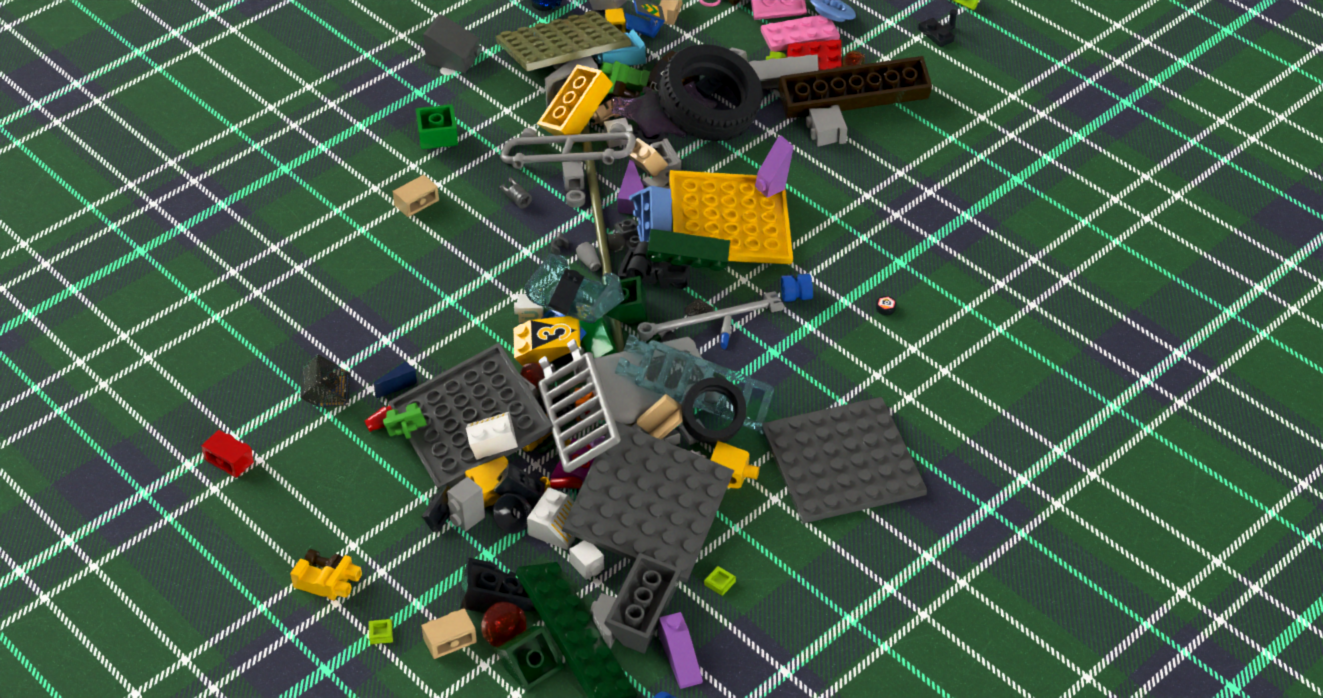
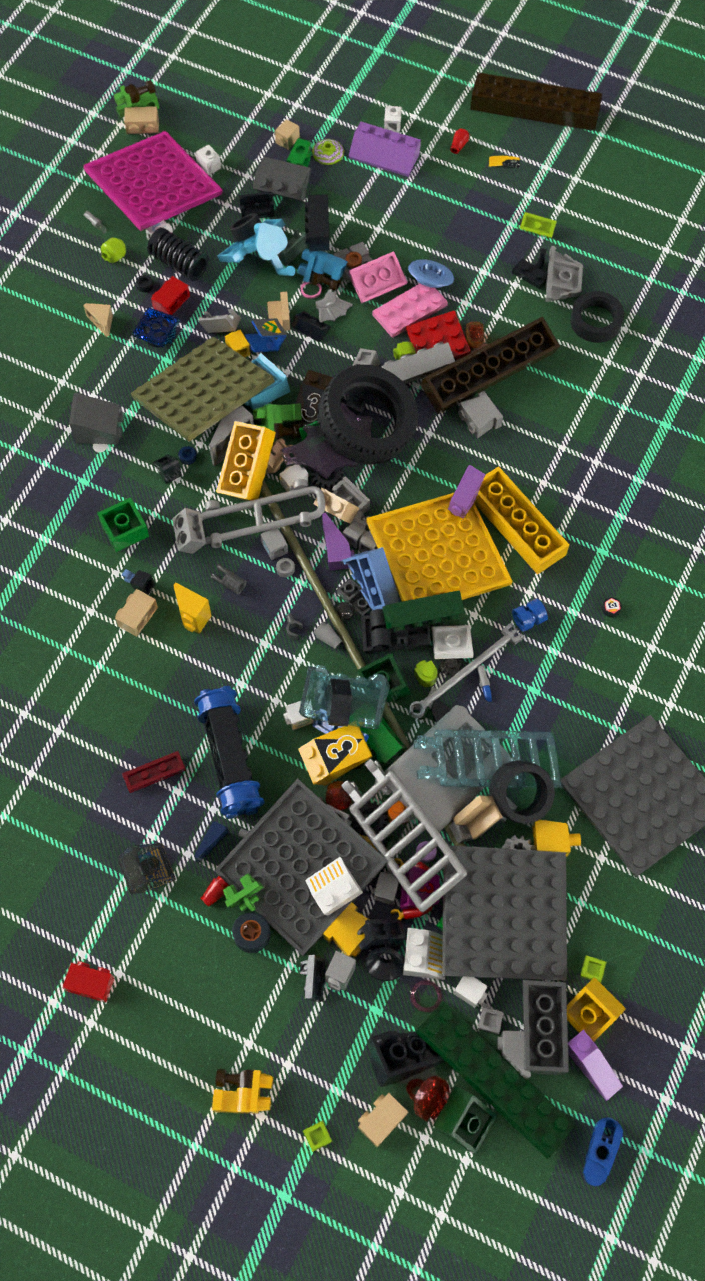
camera: 20 degrees left, 20 degrees up
(370, 316) = (153, 772): none -> dark red plate
(398, 458) = (256, 927): none -> black wheel
(433, 172) = (140, 580): none -> black piece
(439, 344) = (219, 714): none -> brick
(468, 201) = (193, 608): none -> yellow slope
(495, 145) = (189, 531): none -> light grey brick
(502, 98) = (168, 468): none -> black slope
(525, 94) = (187, 455): none -> dark blue tile
(530, 562) = (423, 1009): none -> clear pink piece
(544, 459) = (386, 888): none -> light grey brick
(593, 589) = (490, 1020): none -> light grey tile
(670, 308) = (426, 673): none -> lime plate
(694, 25) = (310, 326): none -> black slope
(702, 607) = (593, 1009): none -> yellow slope
(708, 290) = (452, 642): none -> white plate
(722, 14) = (331, 307): none -> light grey arm
(823, 212) = (520, 521): none -> yellow brick
(966, 40) = (563, 276): none -> light grey wing
(982, 91) = (599, 299): none -> black tyre

